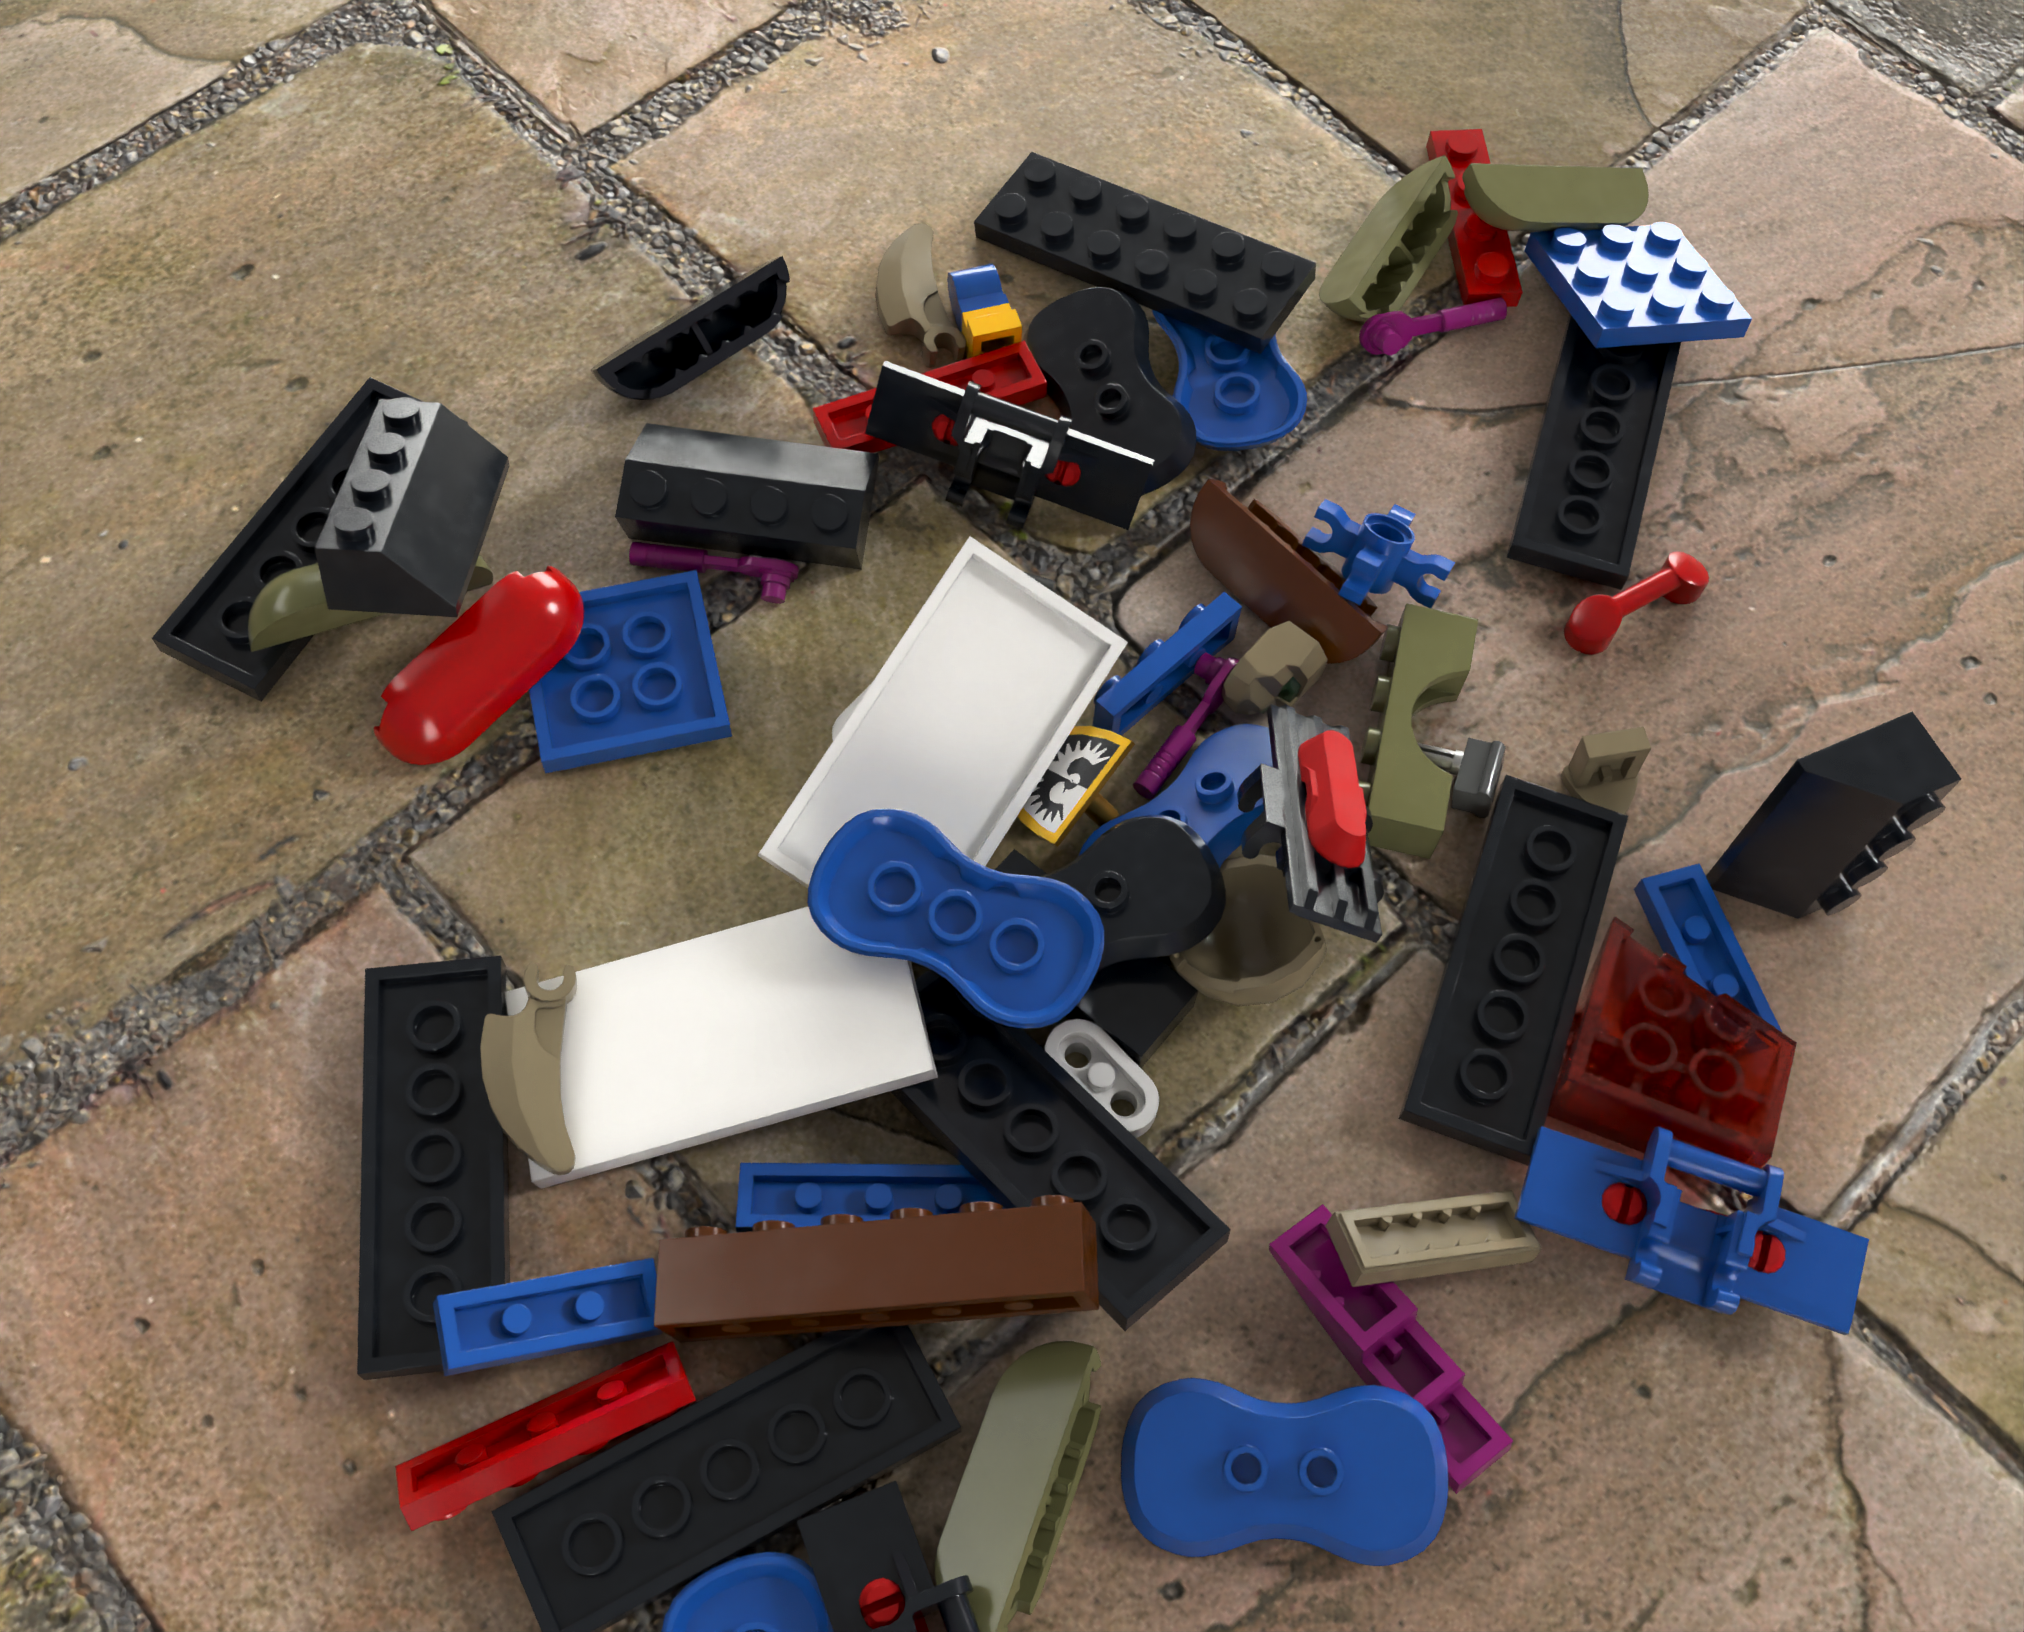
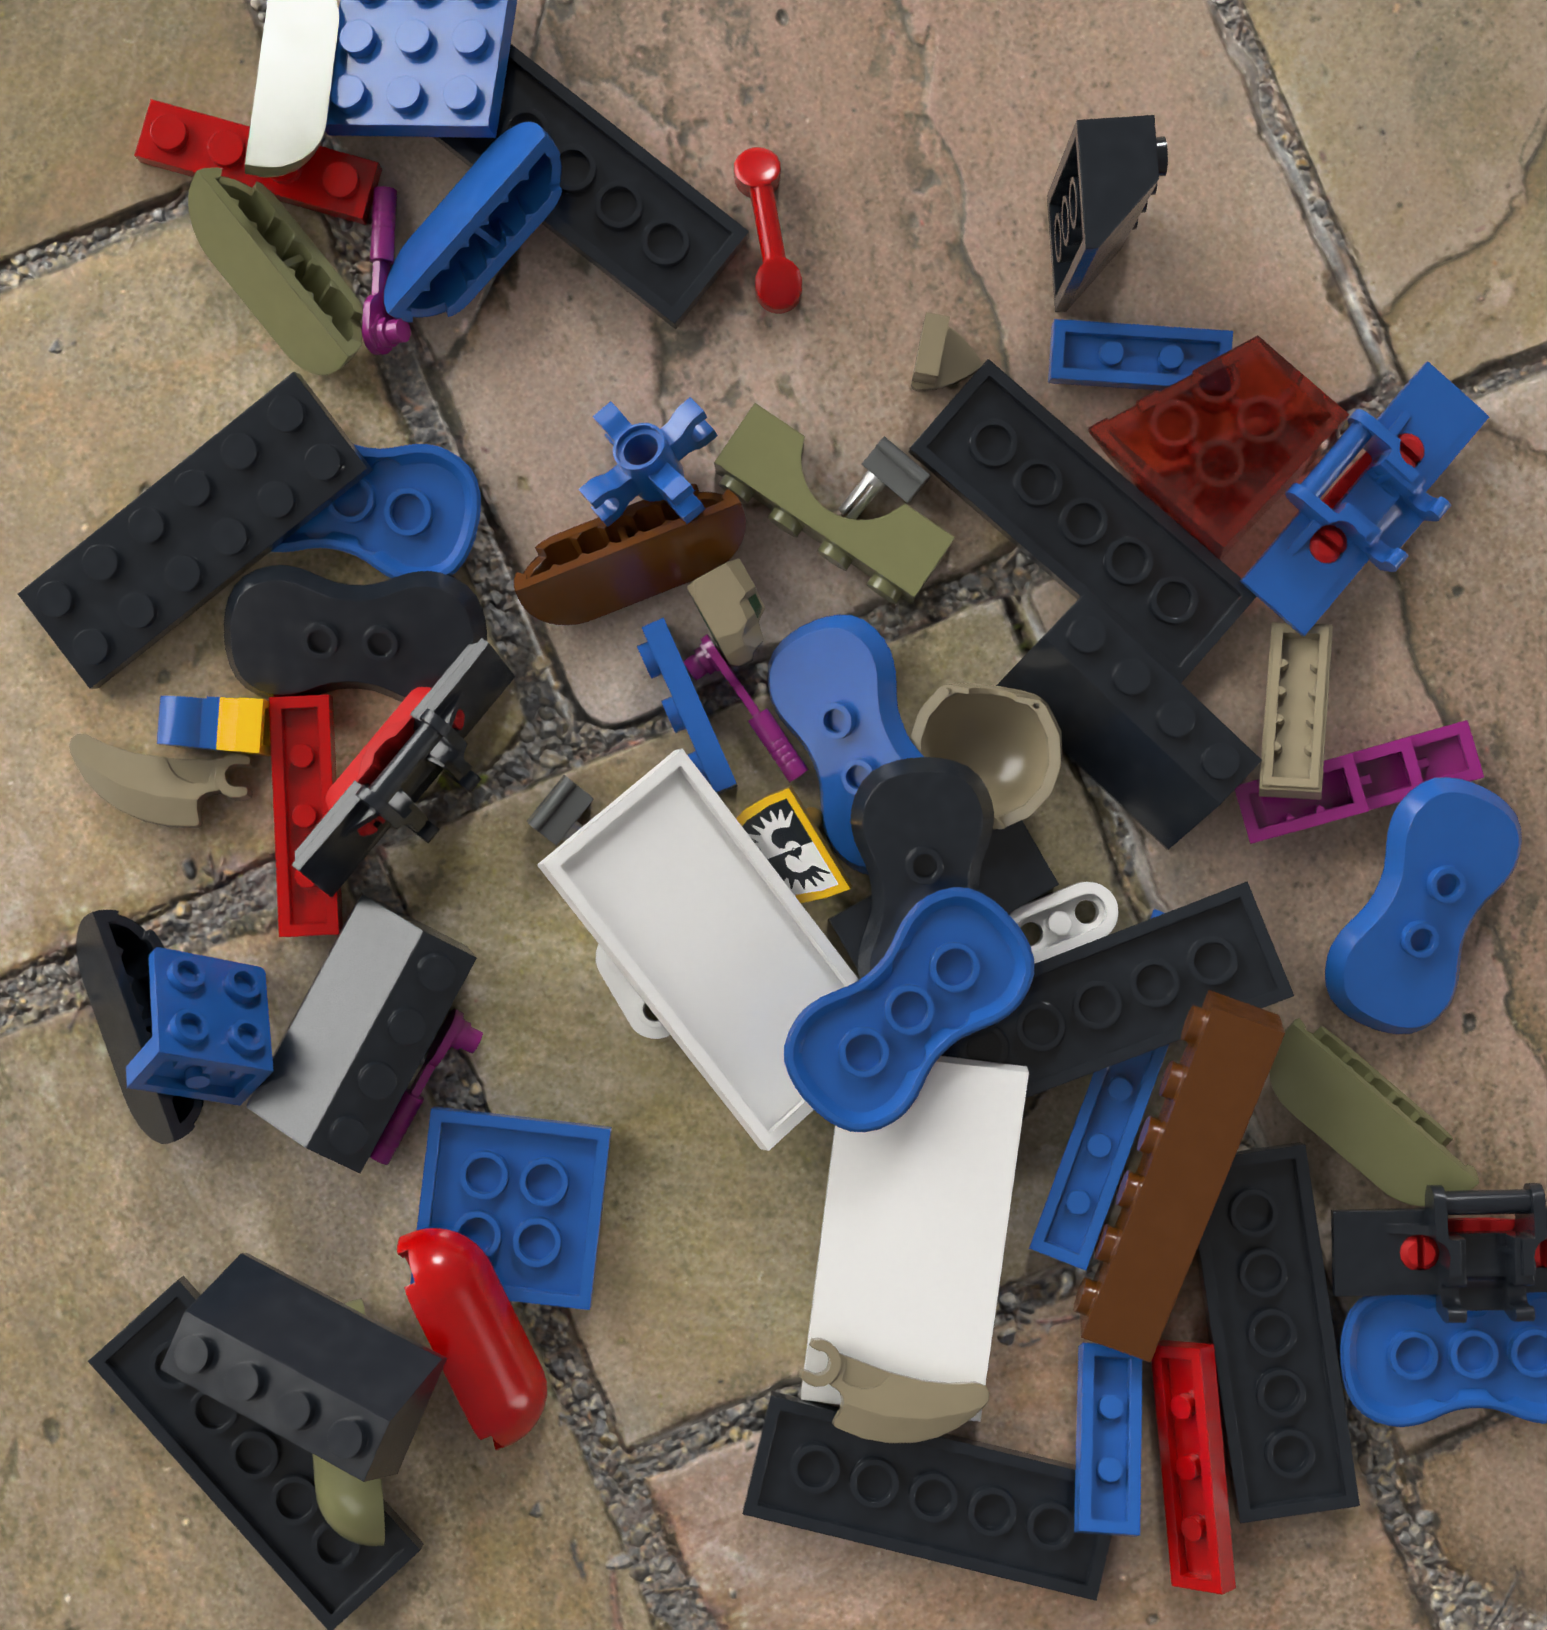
camera: 65 degrees left, 25 degrees up
(706, 363) = (205, 1029): none -> blue bracket
(1319, 820) = (932, 659): black piece -> none
(1338, 1075) = (1132, 723): none -> black slope
(1510, 367) = (476, 226): none -> blue brick

